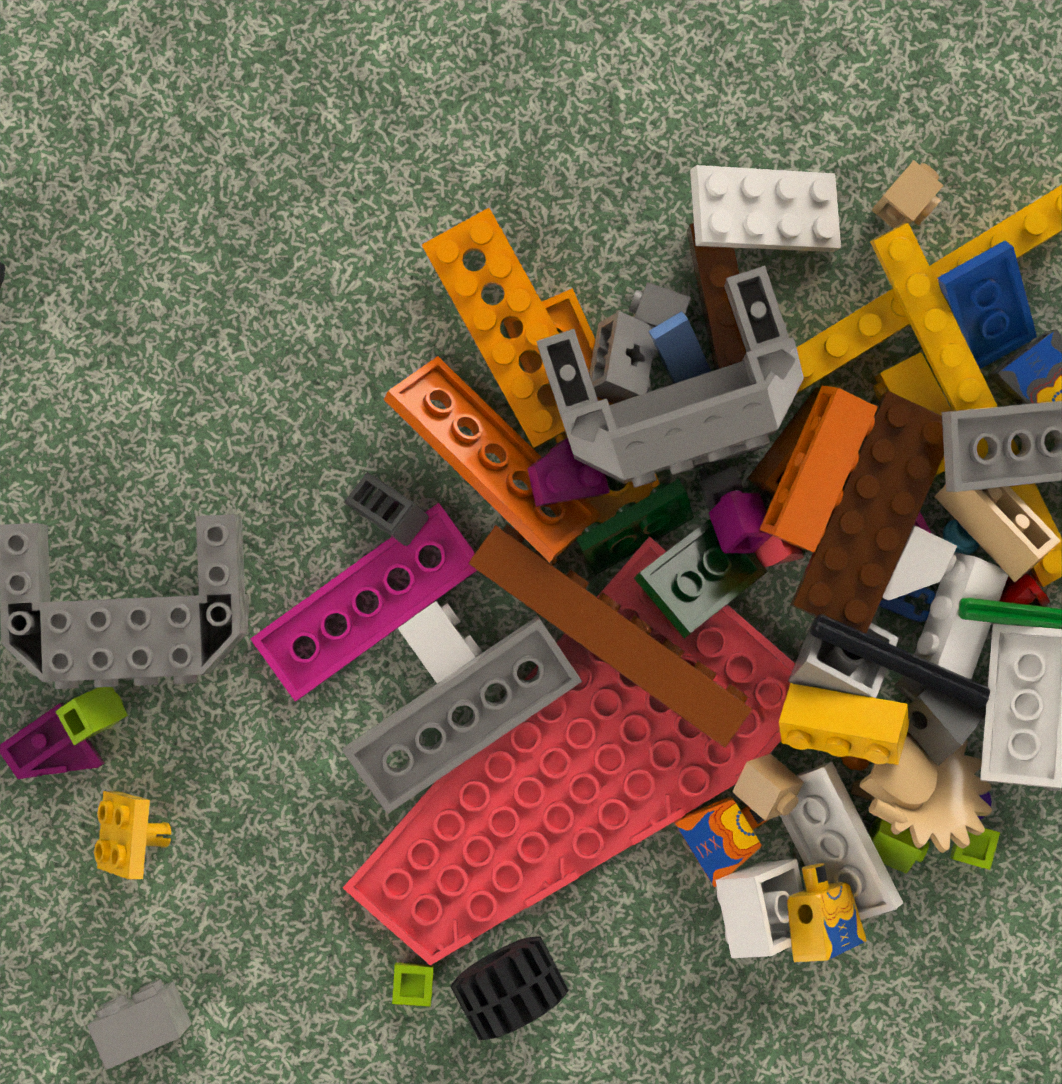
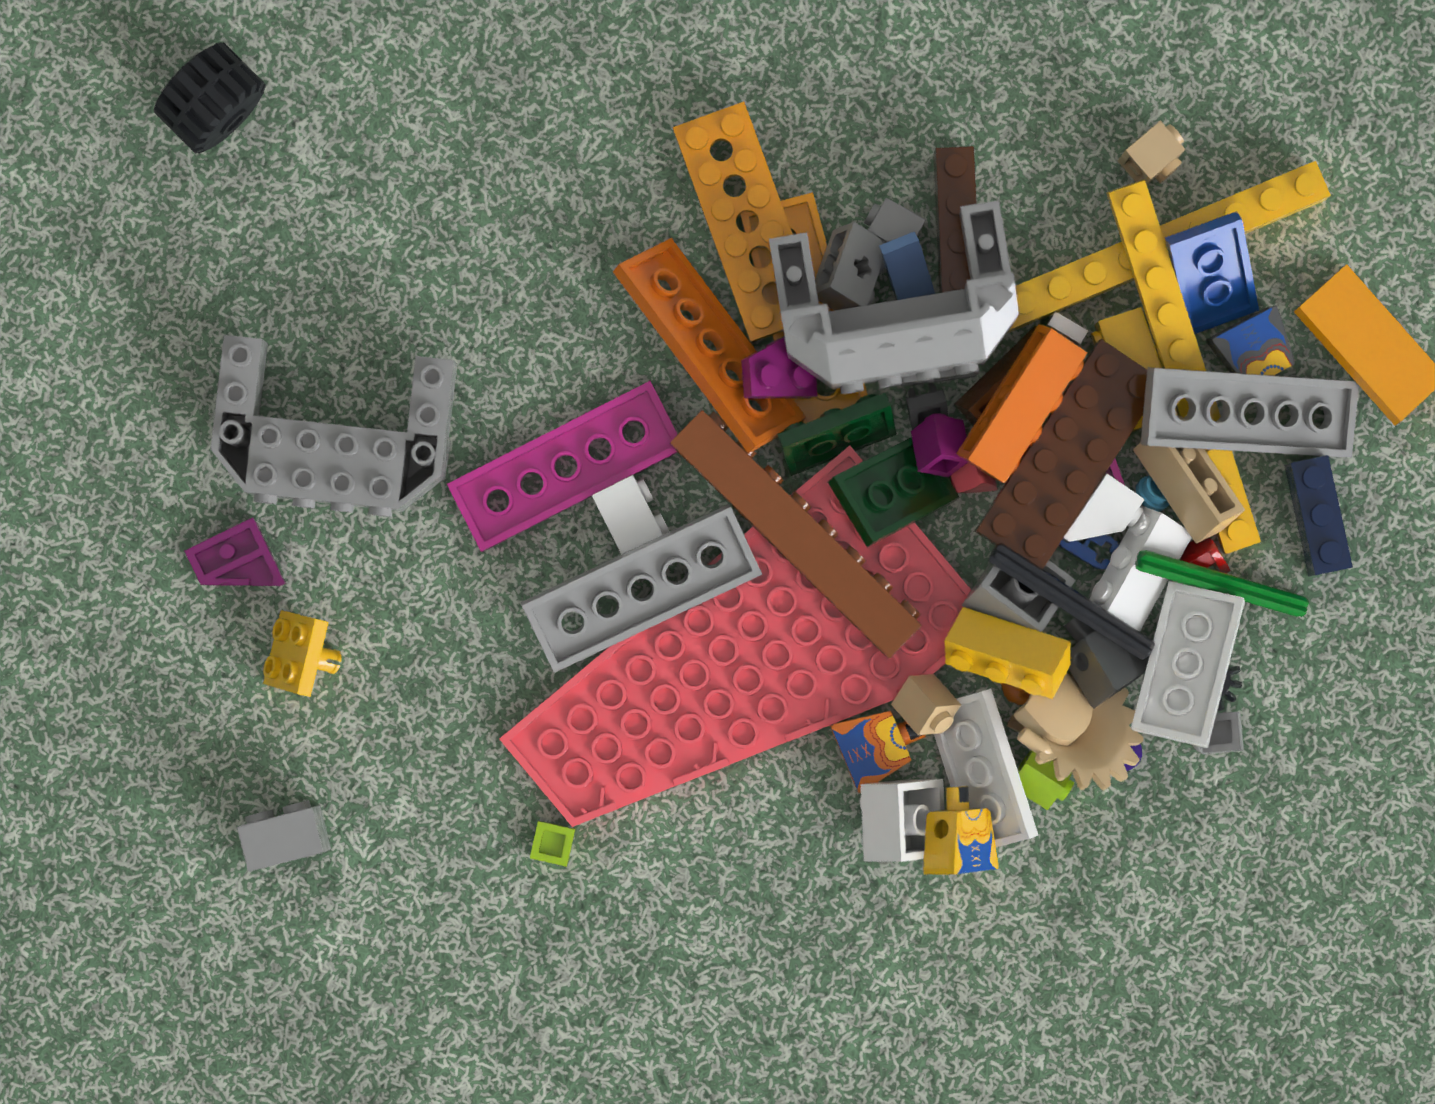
camera: 10 degrees right, 0 degrees up
(91, 713) = (282, 532): lime brick -> none
(405, 521) = (614, 394): dark grey slope -> none
(509, 988) = (646, 858): black wheel -> none
(765, 209) = (1012, 144): white plate -> none
(849, 384) = (1067, 328): none -> white plate
(979, 851) = (1120, 797): lime plate -> none

